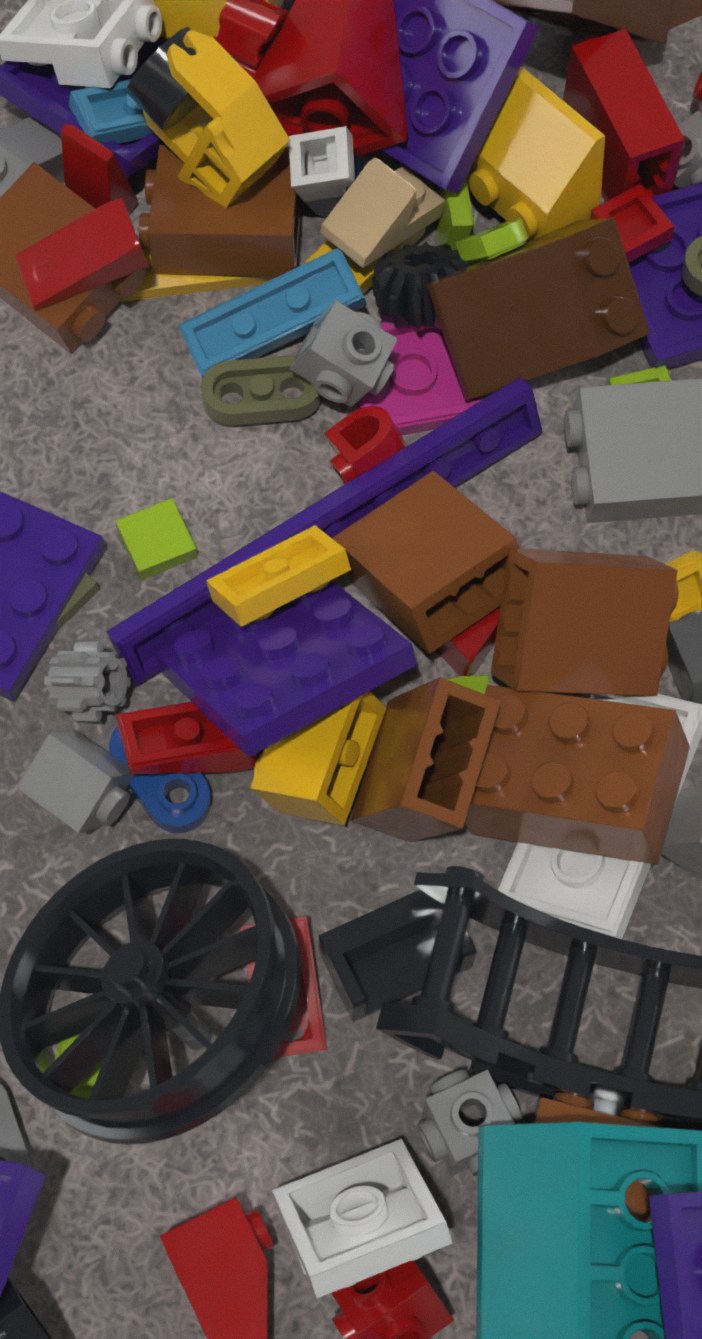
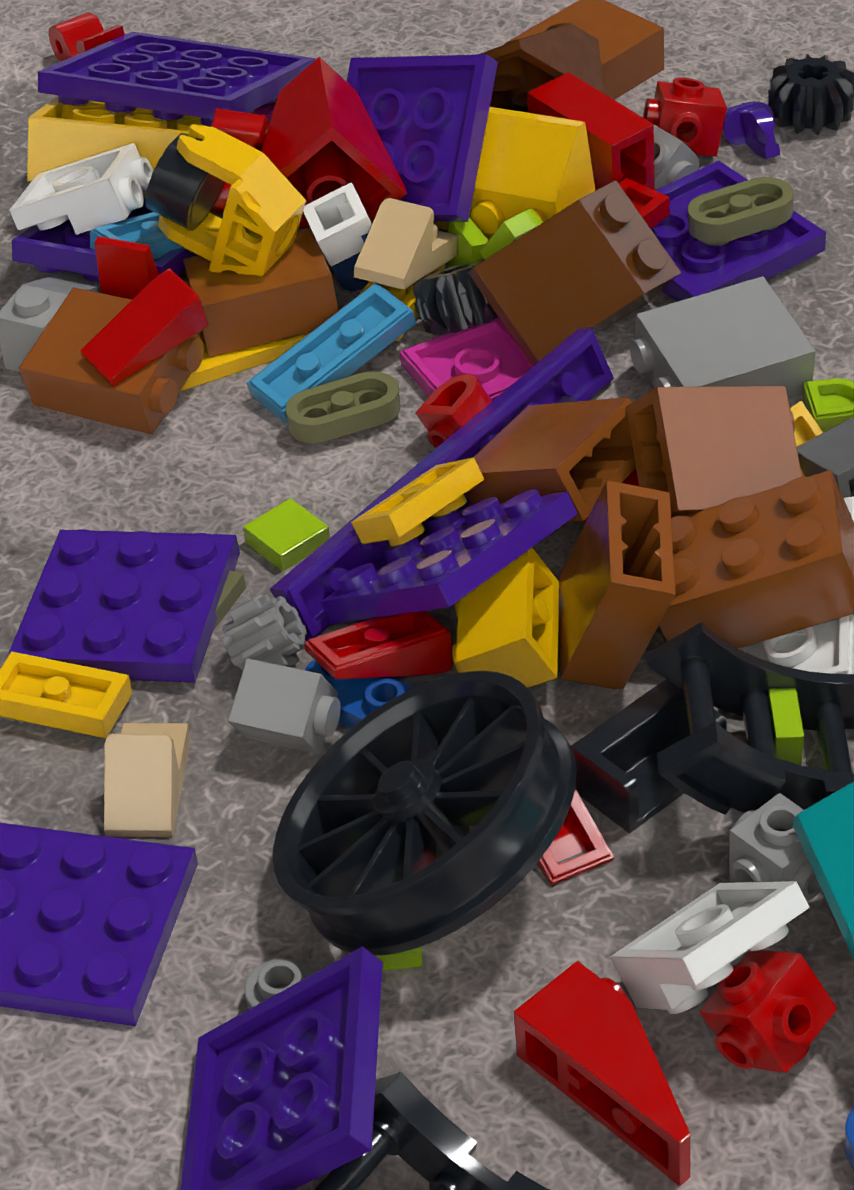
camera: 10 degrees left, 25 degrees down
(345, 355) = (413, 348): light grey brick -> none
(531, 971) = (786, 724): none -> lime tile

